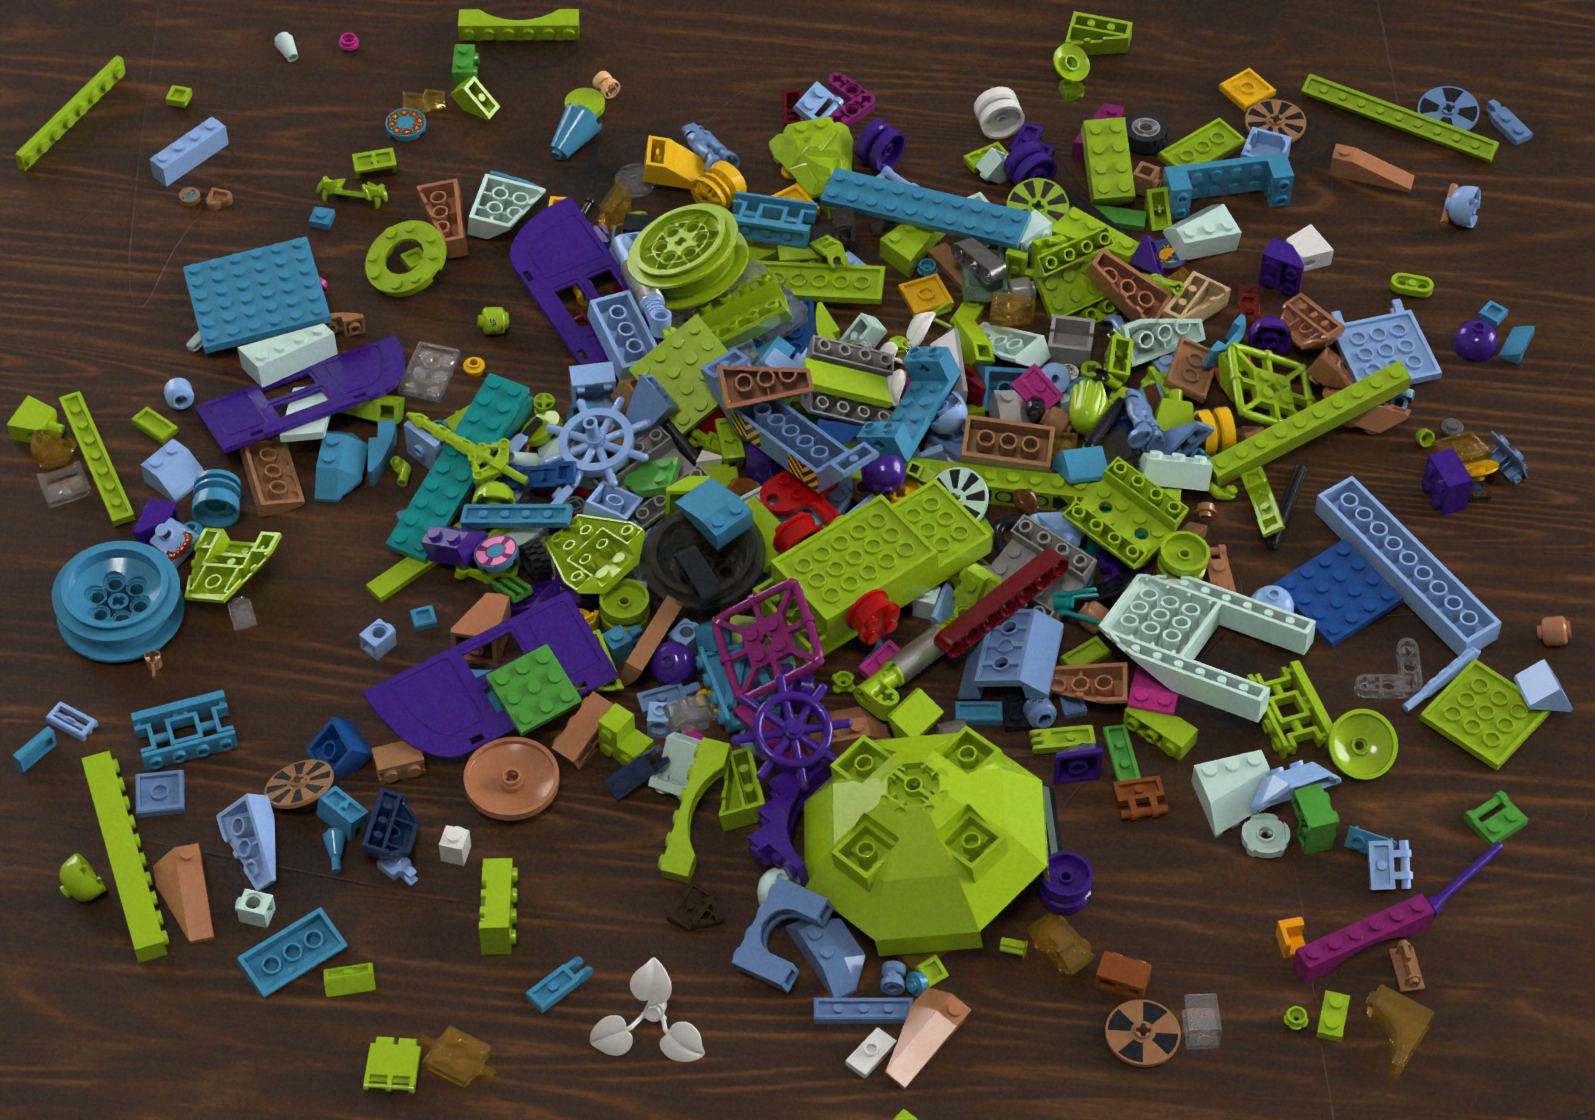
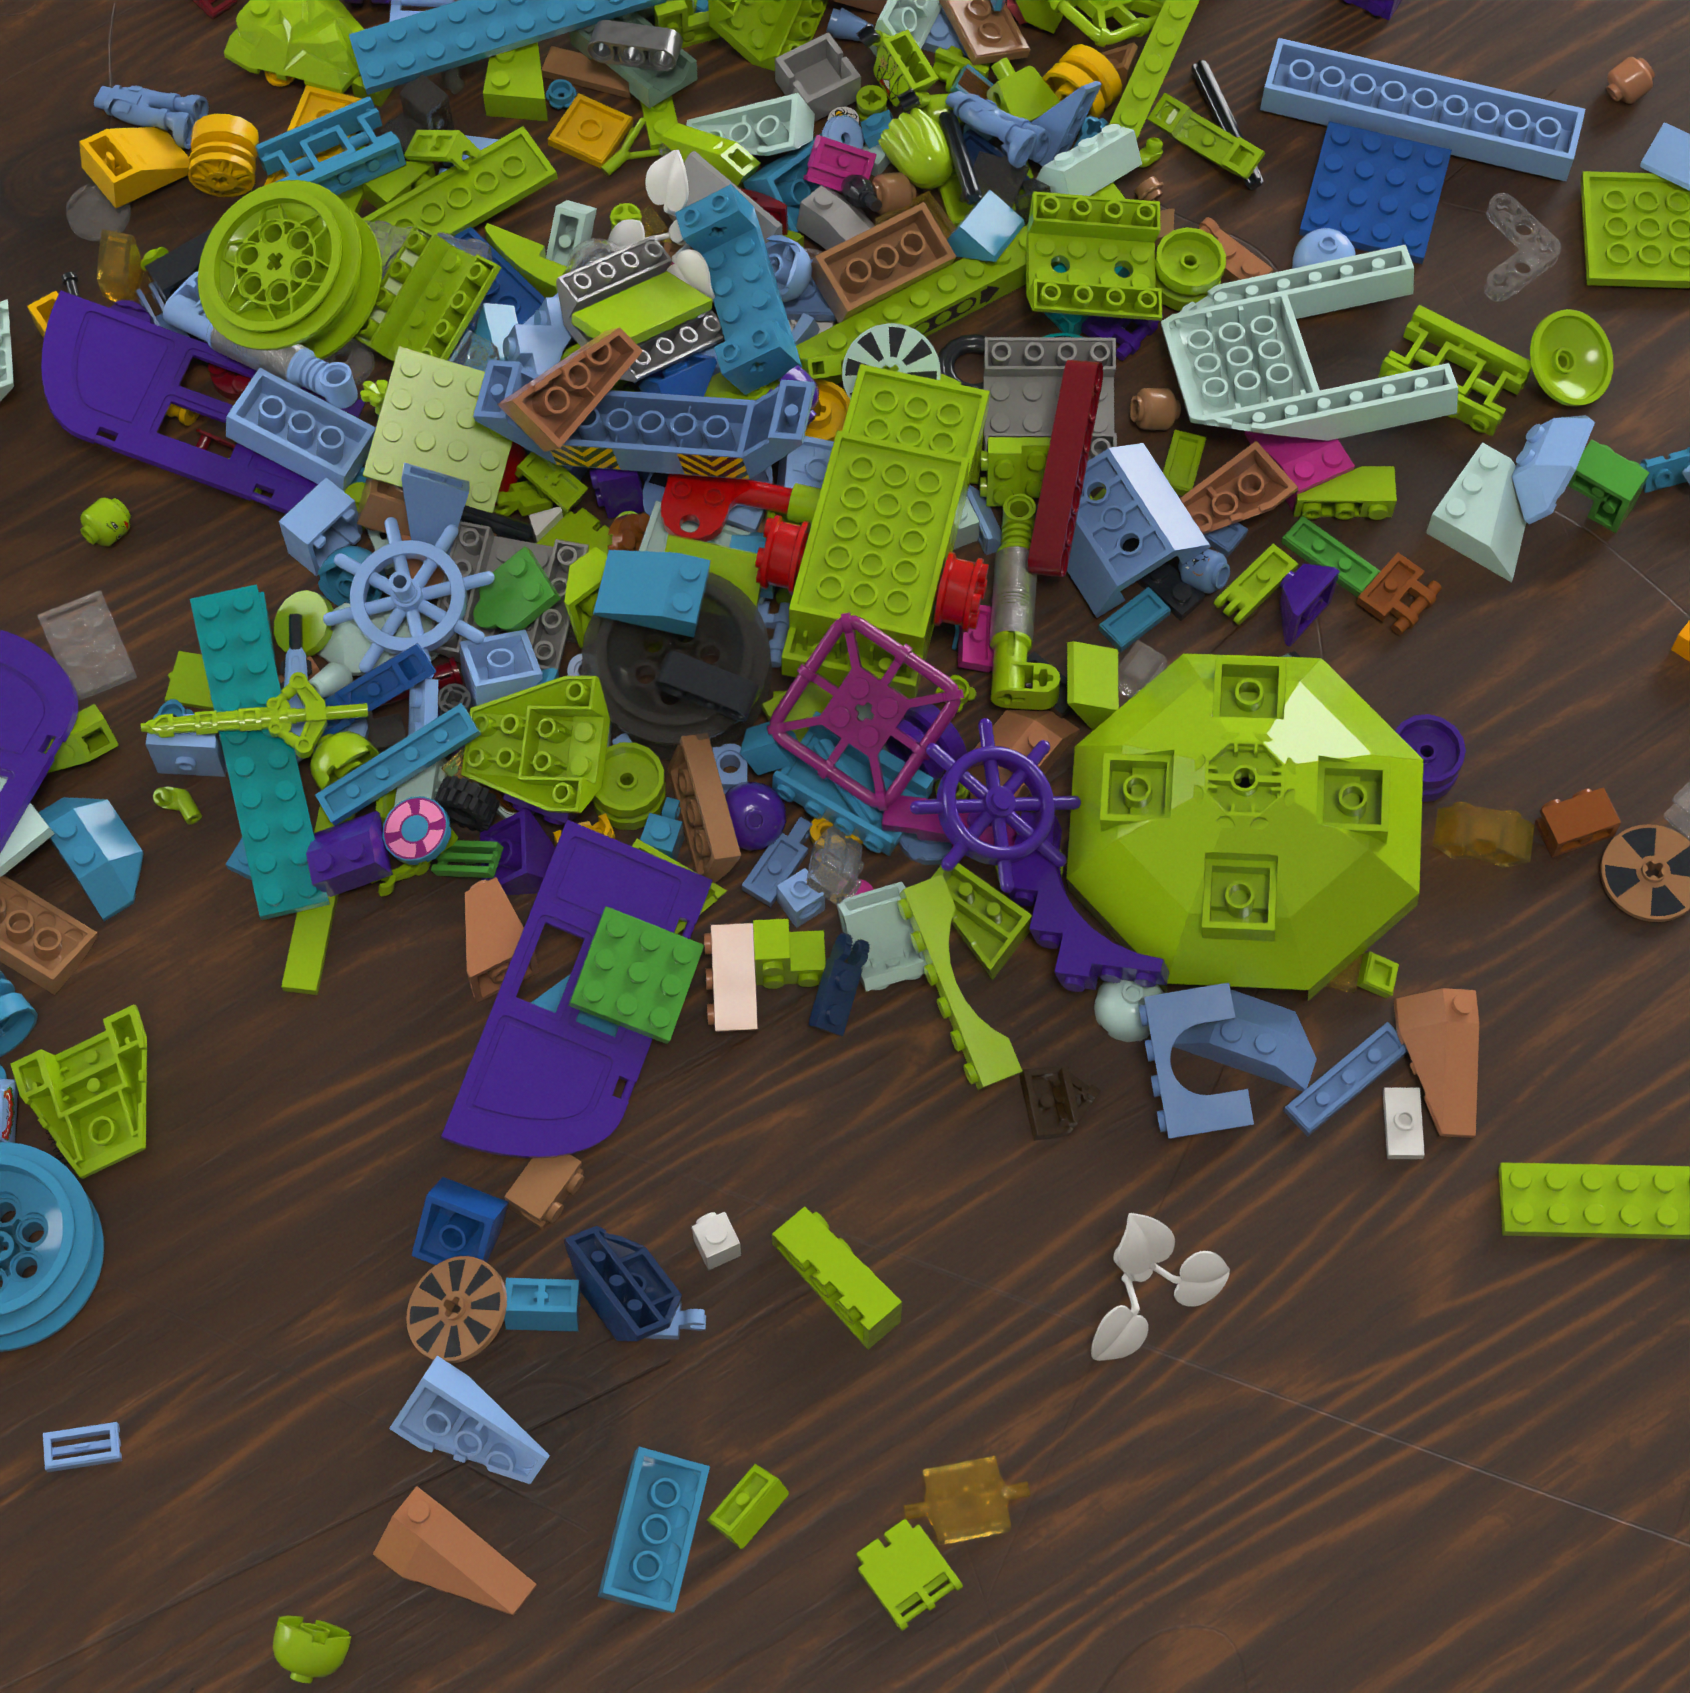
camera: 40 degrees left, 15 degrees up
(34, 749) = (77, 1523): dark azure tile -> none
(124, 856) = (329, 1571): lime brick -> none
(153, 661) = (111, 1288): medium nougat piece -> none
(160, 793) = (288, 1453): medium blue tile -> none
(179, 715) = (221, 1331): dark azure fence -> none
(241, 613) = (166, 1141): clear bracket -> none
(261, 914) = (559, 1493): light aqua brick -> none
(334, 842) = (570, 1351): dark azure cone -> none
(378, 639) = (372, 1059): light blue brick -> none
(381, 450) = (128, 794): dark azure slope -> none
(423, 618) = (392, 976): dark azure tile -> none
(474, 366) = (137, 607): yellow plate -> none
(511, 778) = (703, 1105): nougat dish -> none
(543, 402) = (275, 583): lime wheel -> none
(558, 984) = (995, 1321): dark azure hinge -> none
(893, 975) = (1348, 1015): medium blue wheel -> none
(916, 983) = (1377, 1001): dark azure plate -> none
(1012, 310) = (717, 86): clear yellow slope -> none
(1013, 946) = (1436, 875): lime piece -> none
(1021, 286) = (703, 47): light grey head -> none
(1027, 503) = (1014, 319): torso -> none
(1065, 600) = (1115, 413): teal plant -> none
(1111, 590) = (1144, 364): black piece -> none
(1261, 847) = (1559, 558): light aqua plate -> none
(1444, 677) = (1567, 256): light blue sword -> none

